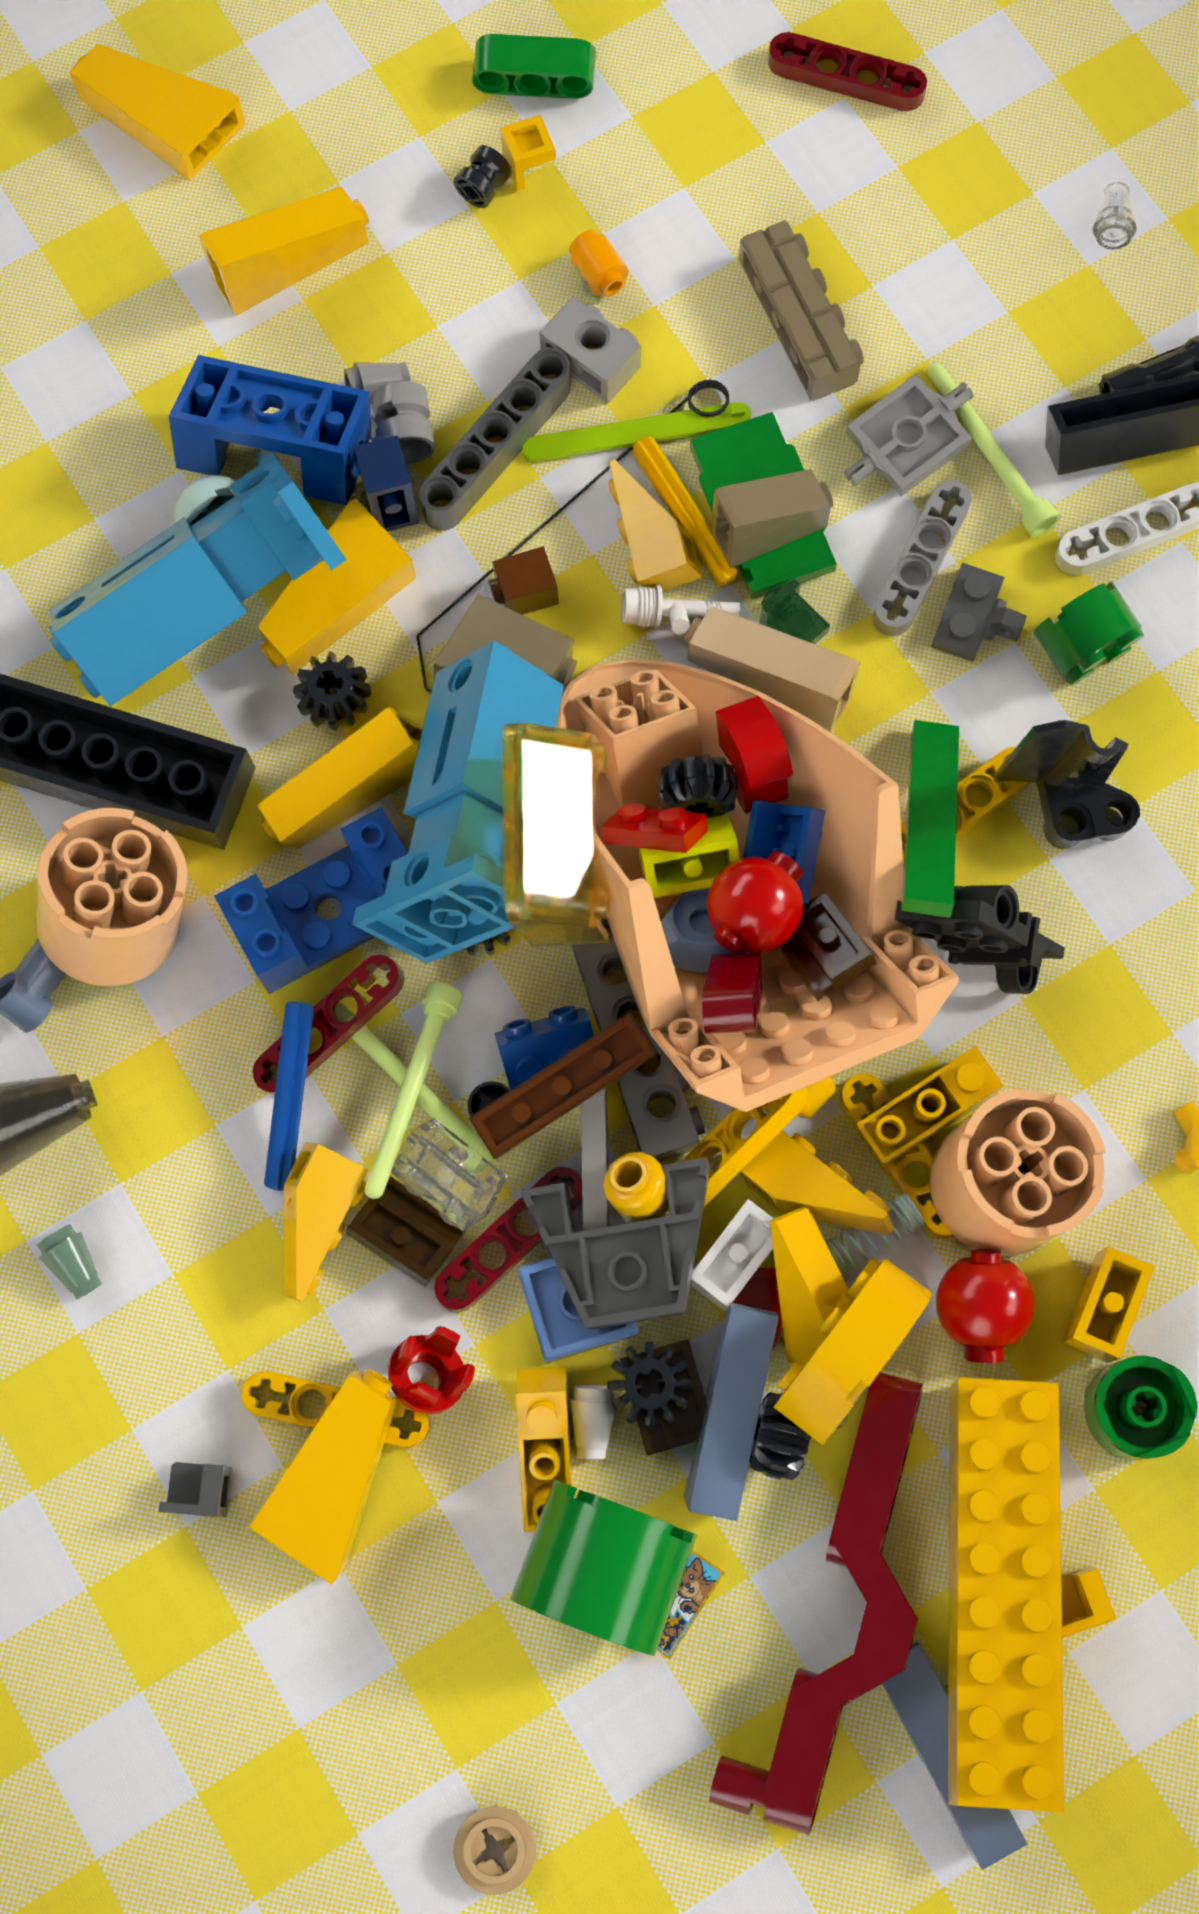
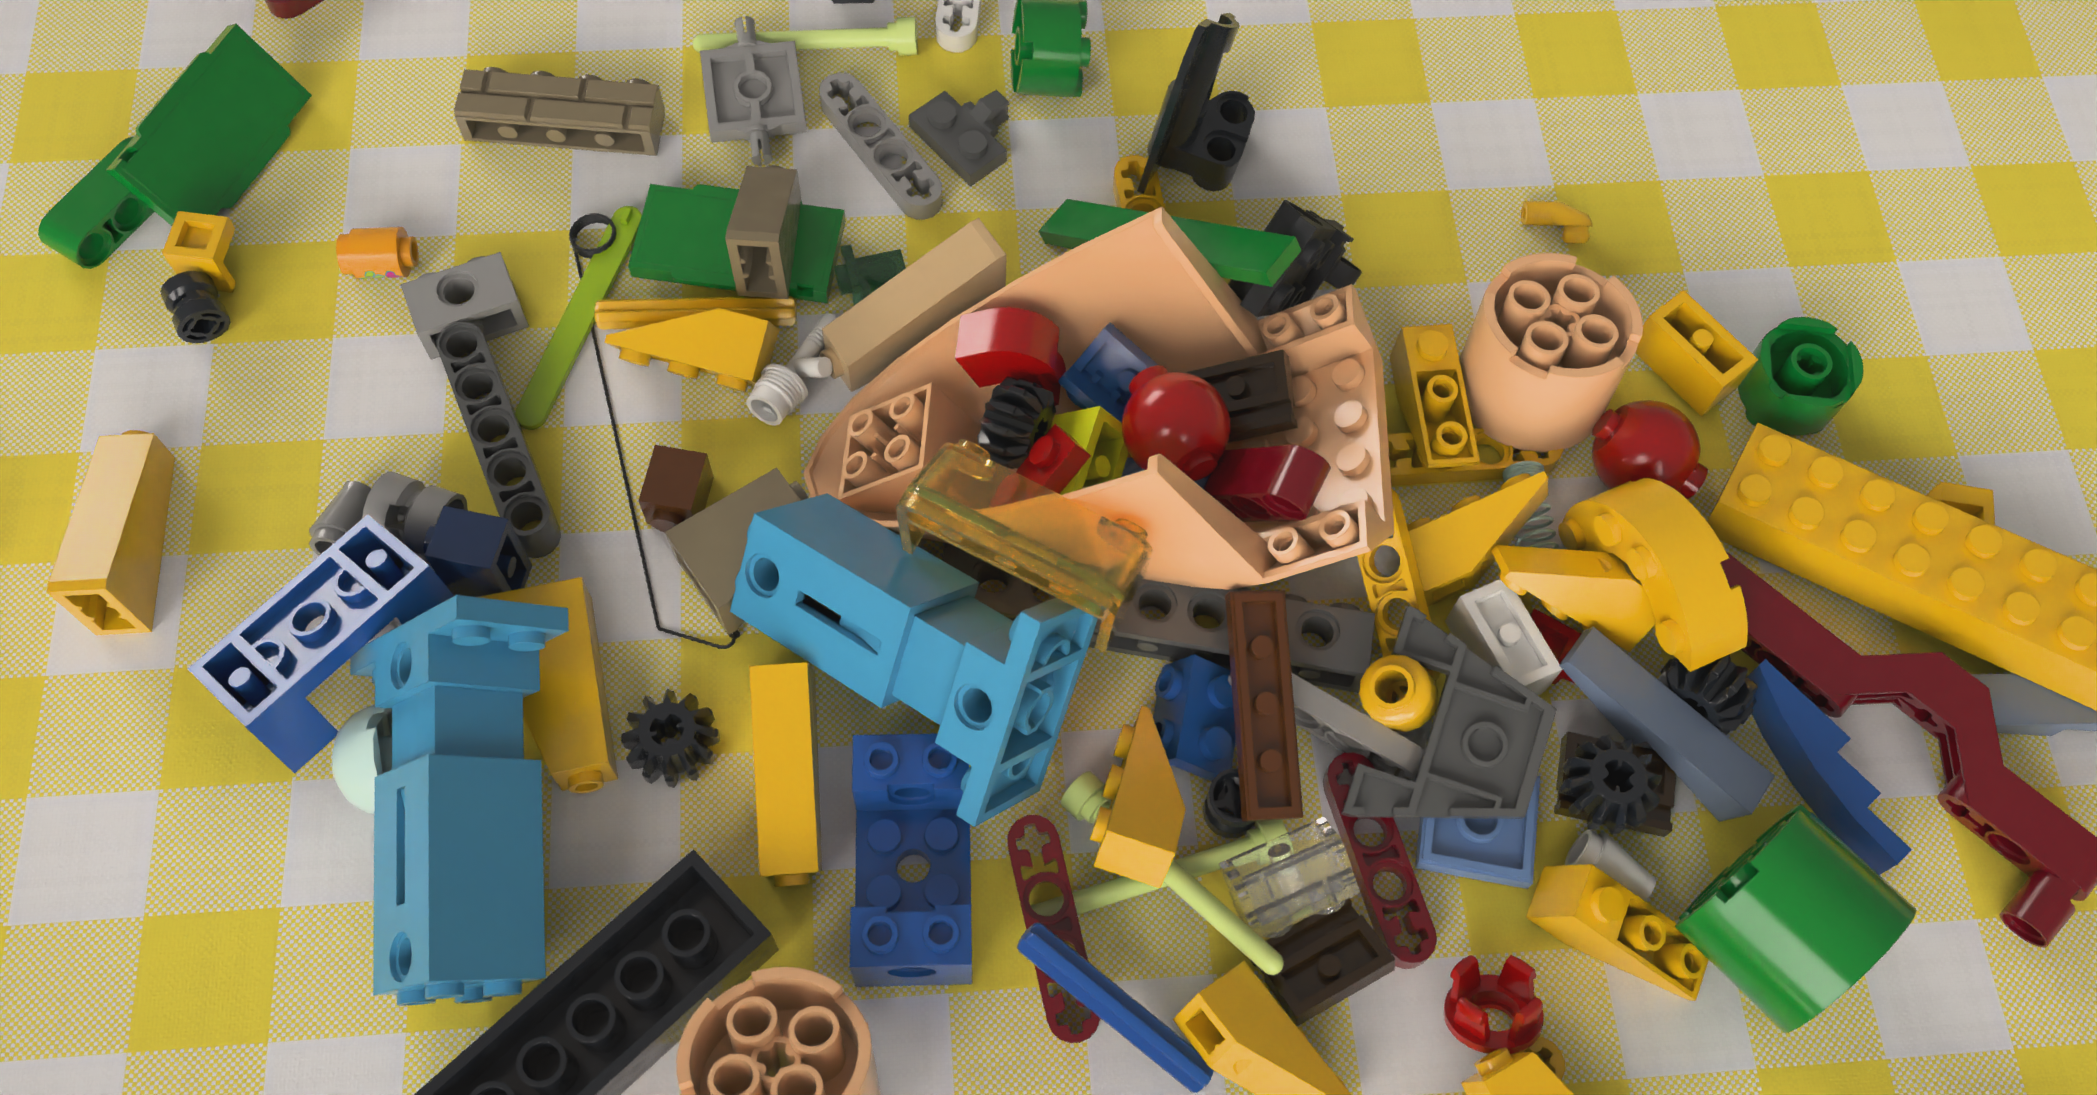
camera: 70 degrees left, 10 degrees down
(430, 1042) = (1145, 810): none -> yellow slope
(624, 90) = (211, 129): none -> green piece
(781, 1543) = (1807, 750): none -> blue slope

